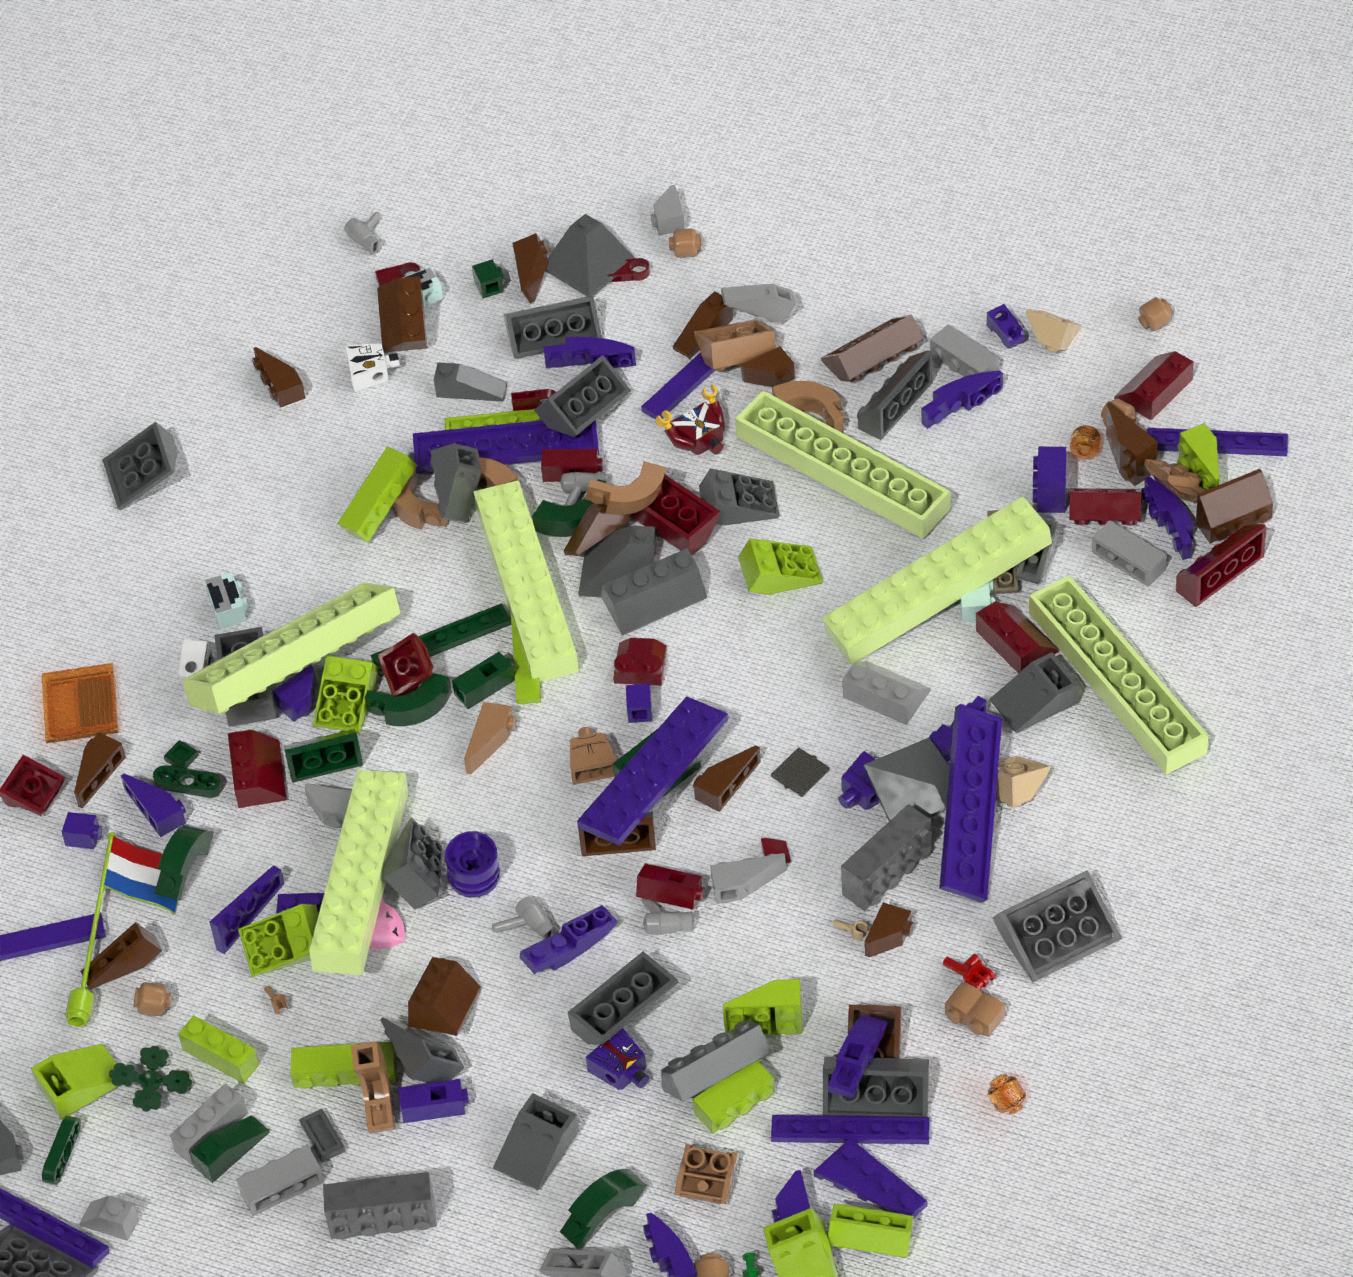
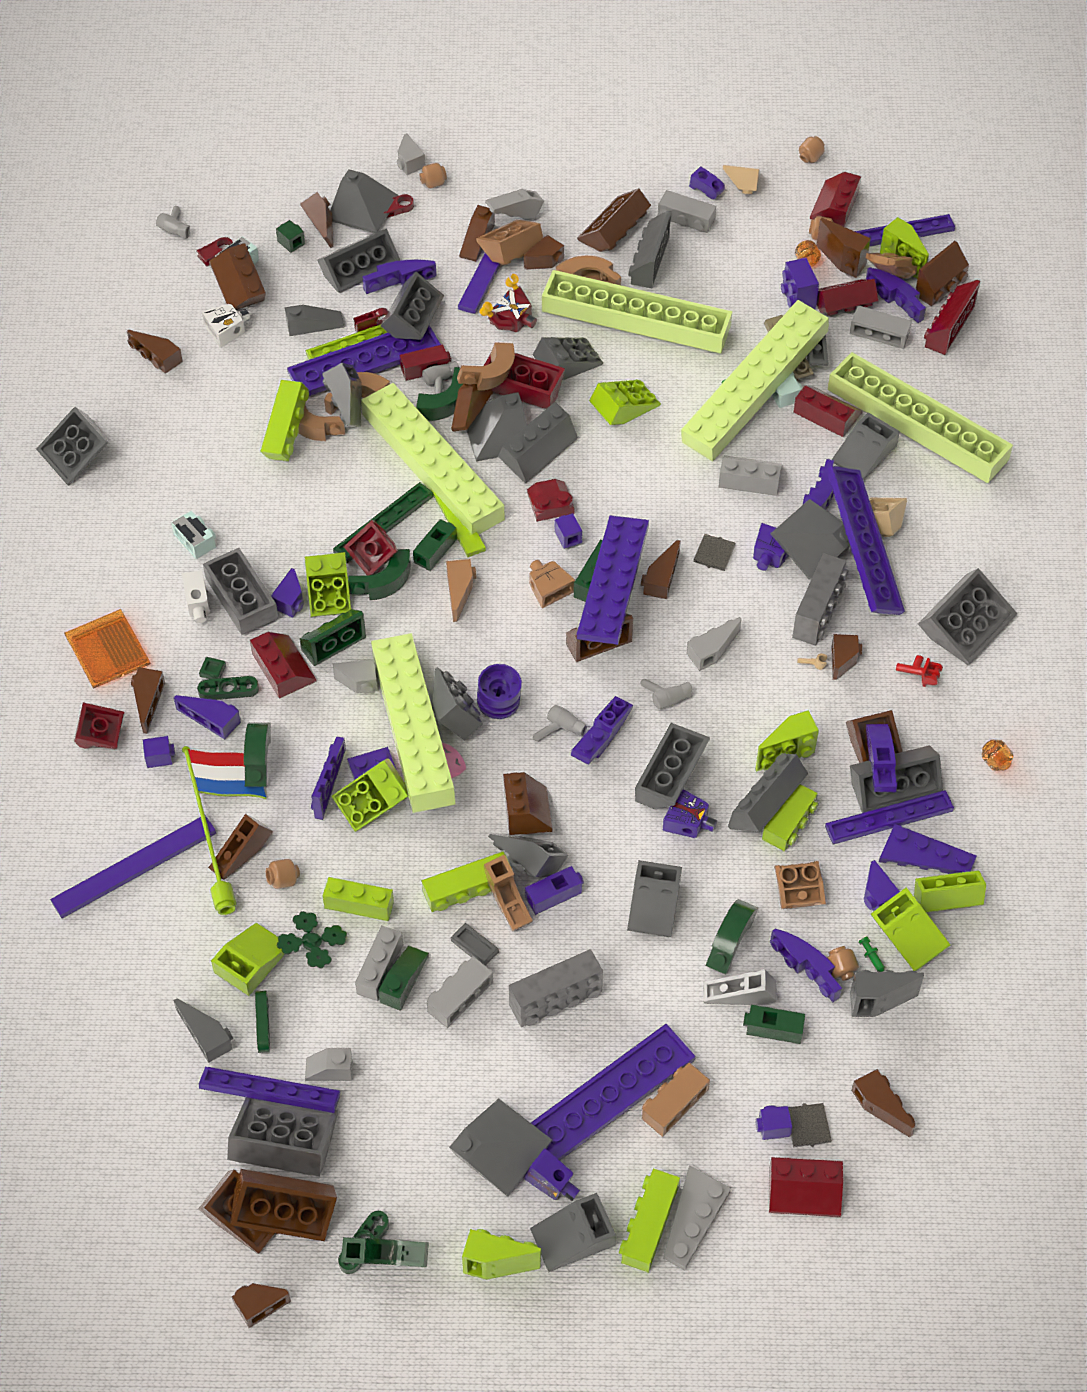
camera: 25 degrees left, 5 degrees up
(277, 1001) = (388, 845): medium nougat hand -> none
(291, 647) = (275, 558): yellowish green brick -> none
(669, 886) = (661, 666): dark red brick -> none
(775, 846) = (722, 615): dark red slope -> none
(964, 392) = (699, 239): dark purple slope -> none
(975, 1009) = (939, 697): medium nougat brick -> none

